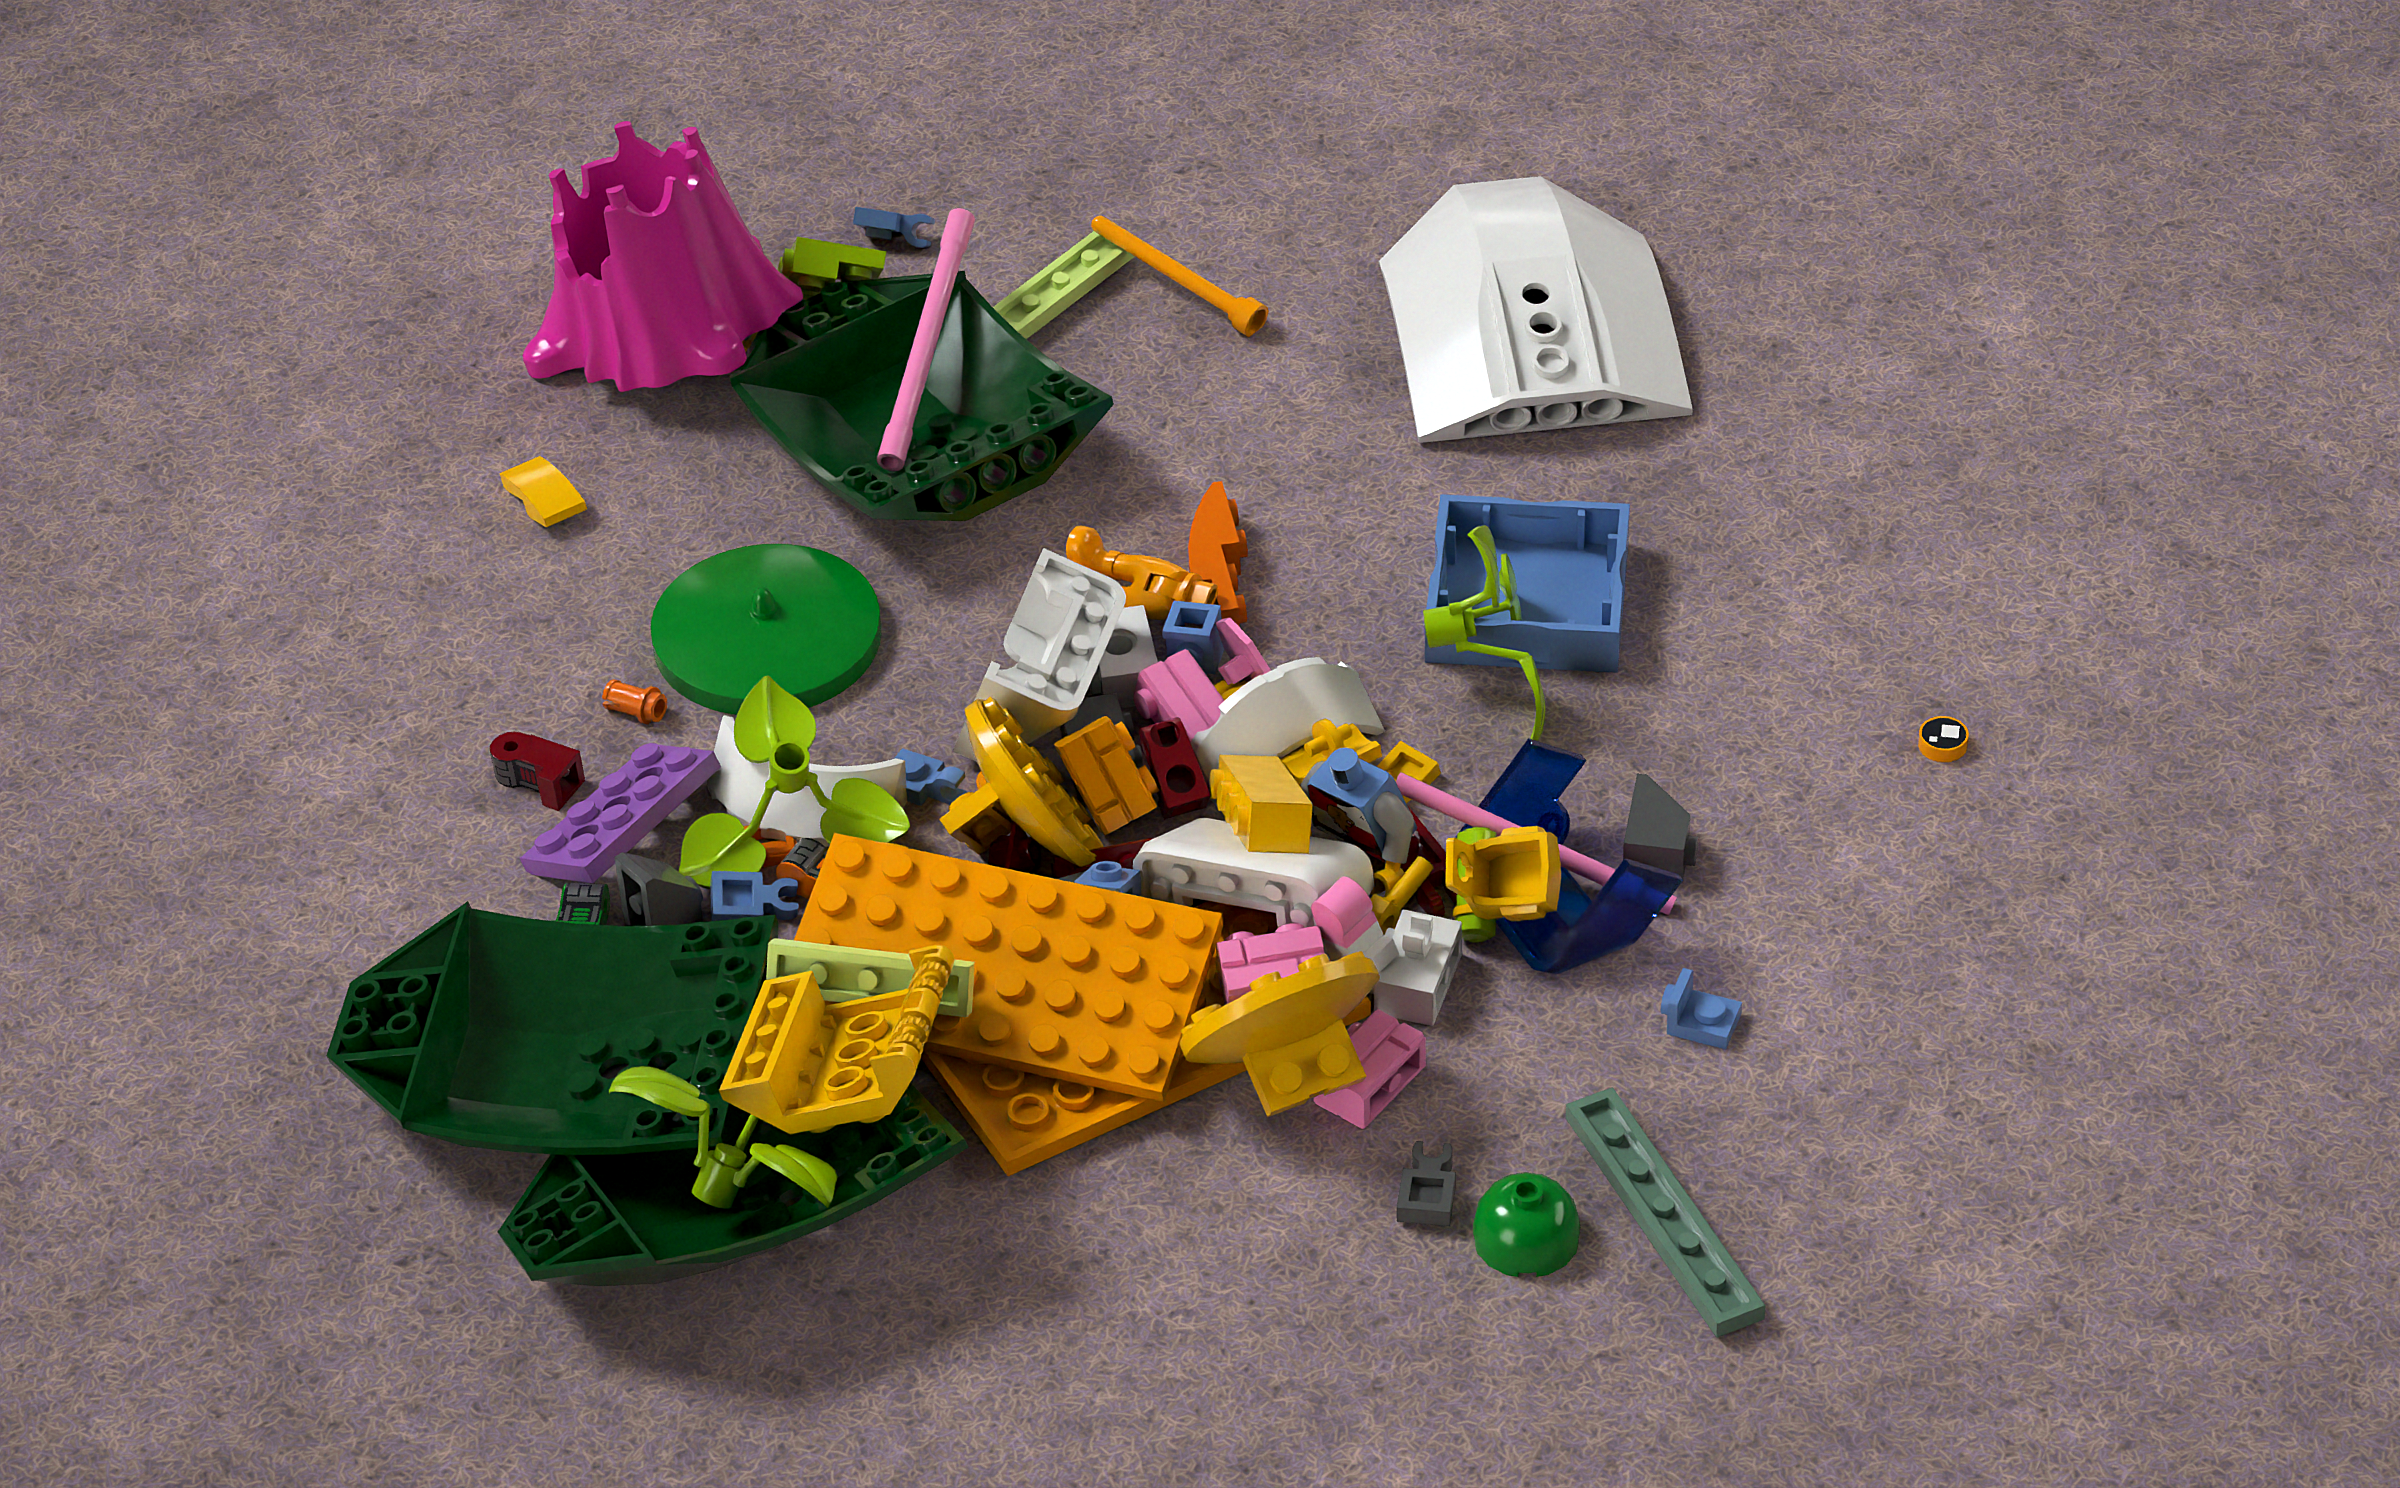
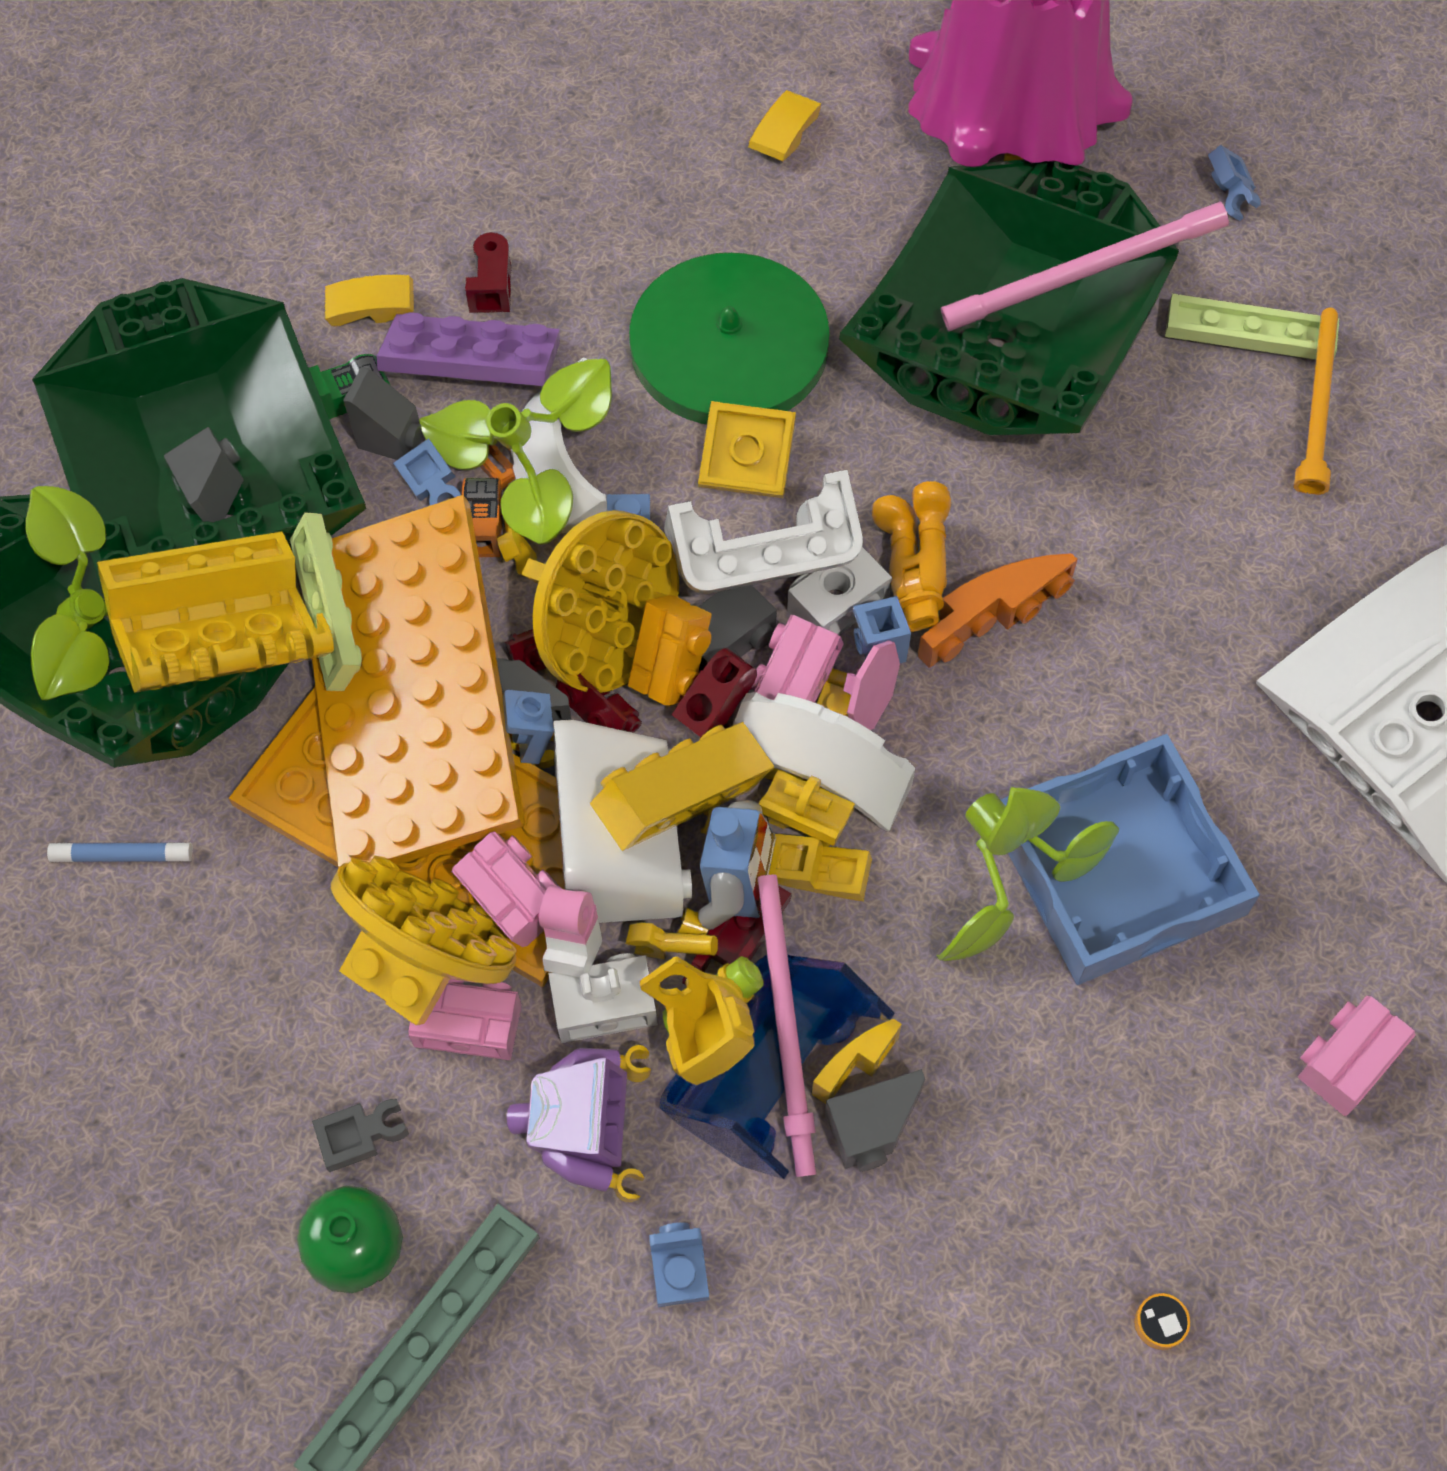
camera: 60 degrees right, 20 degrees up
(480, 870) = (370, 296): none -> yellow slope
(630, 1033) = (207, 474): none -> dark grey slope
(643, 703) = (599, 303): orange pin -> none
(819, 263) = (1130, 158): lime plate -> none
(911, 660) = (747, 449): none -> yellow plate
(994, 1279) = (119, 852): none -> medium blue bar
(1526, 1017) = (579, 1116): none -> medium lavender torso
(1595, 821) = (863, 1052): none -> yellow slope
(1799, 525) = (1356, 1054): none -> bright pink brick

